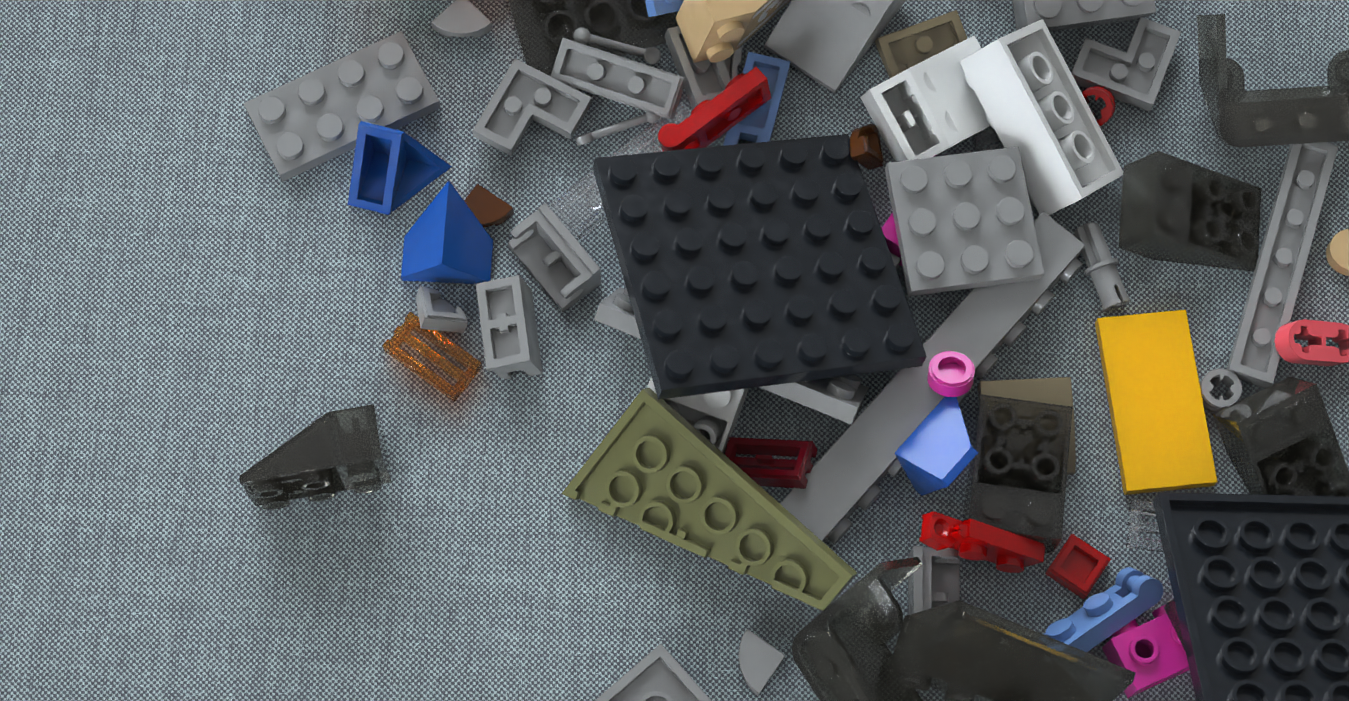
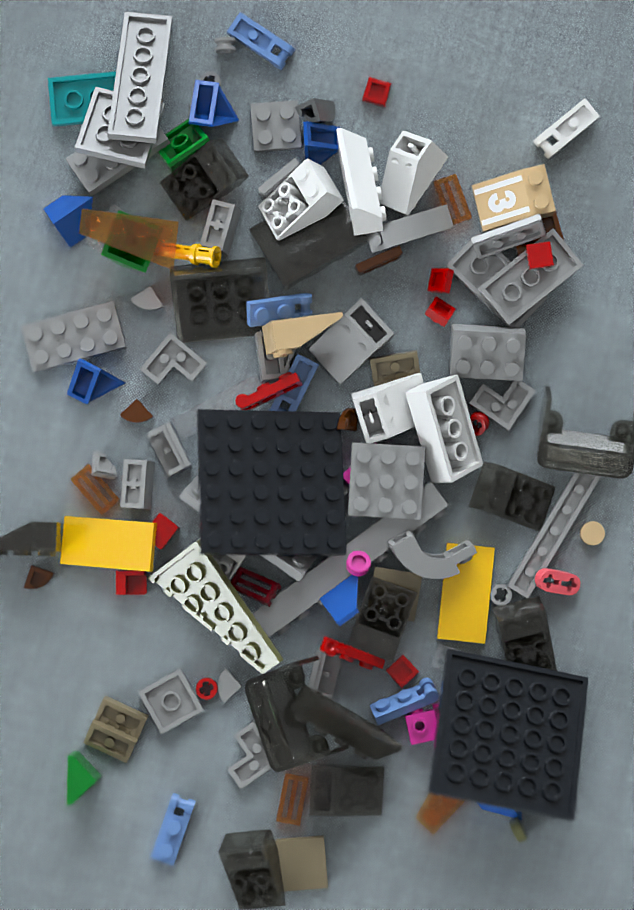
camera: 10 degrees right, 15 degrees up
(355, 537) = (37, 577): none -> reddish brown tile
(447, 243) = (114, 429): blue slope -> none
(477, 440) = (108, 543): none -> yellow tile
(534, 505) = (131, 582): none -> red panel
(572, 399) = (165, 530): none -> red panel
(591, 136) = (238, 377): light grey hinge -> none
(618, 78) = (223, 355): light grey tile -> none
(650, 54) = (246, 341): light grey hinge -> none
(732, 678) = (212, 693): none -> red bush
(1052, 346) = (430, 565): none -> light grey arch
(1102, 267) = (456, 514): light grey axle -> none

